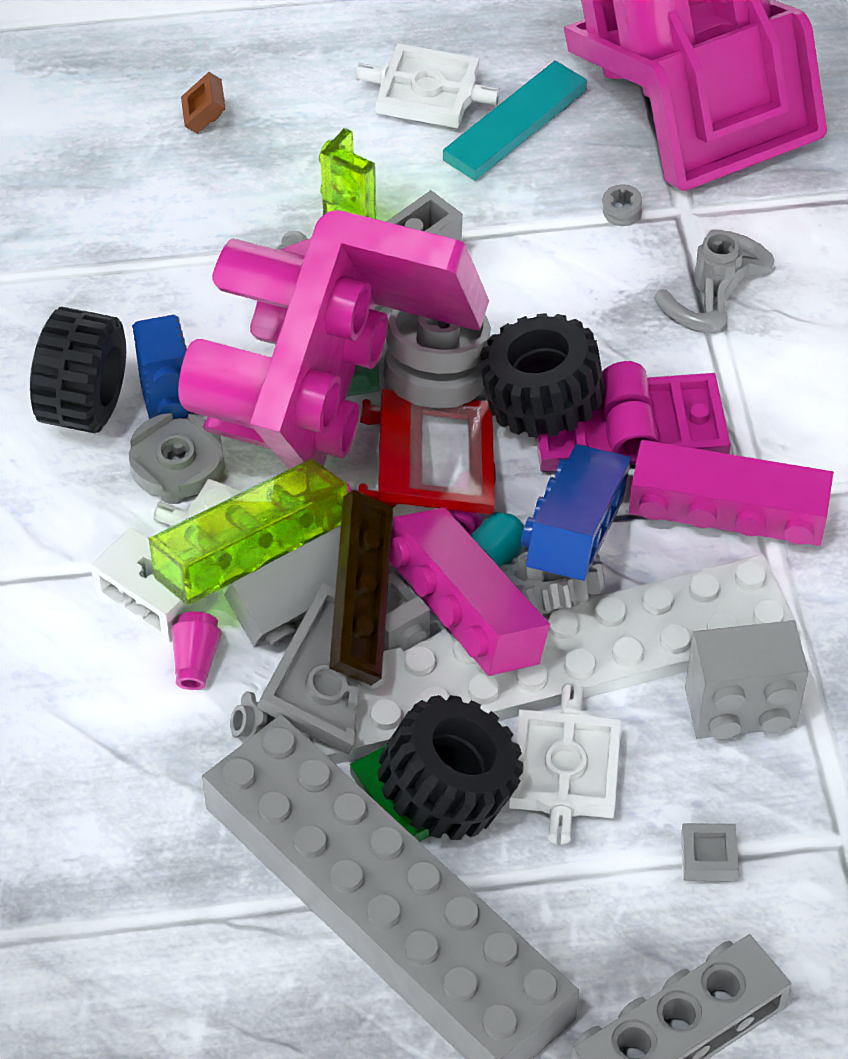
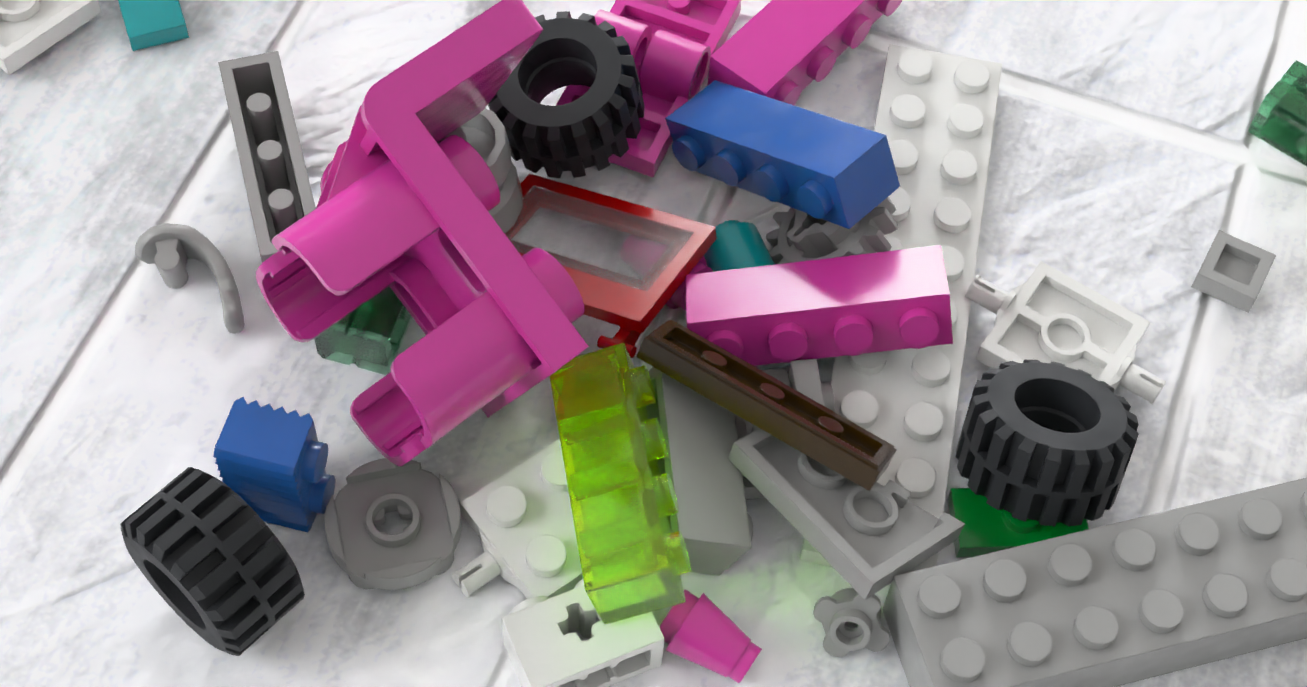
camera: 65 degrees left, 5 degrees up
(347, 178) = (129, 141): clear neon green bracket -> none
(746, 679) = (1069, 128): light grey brick -> none

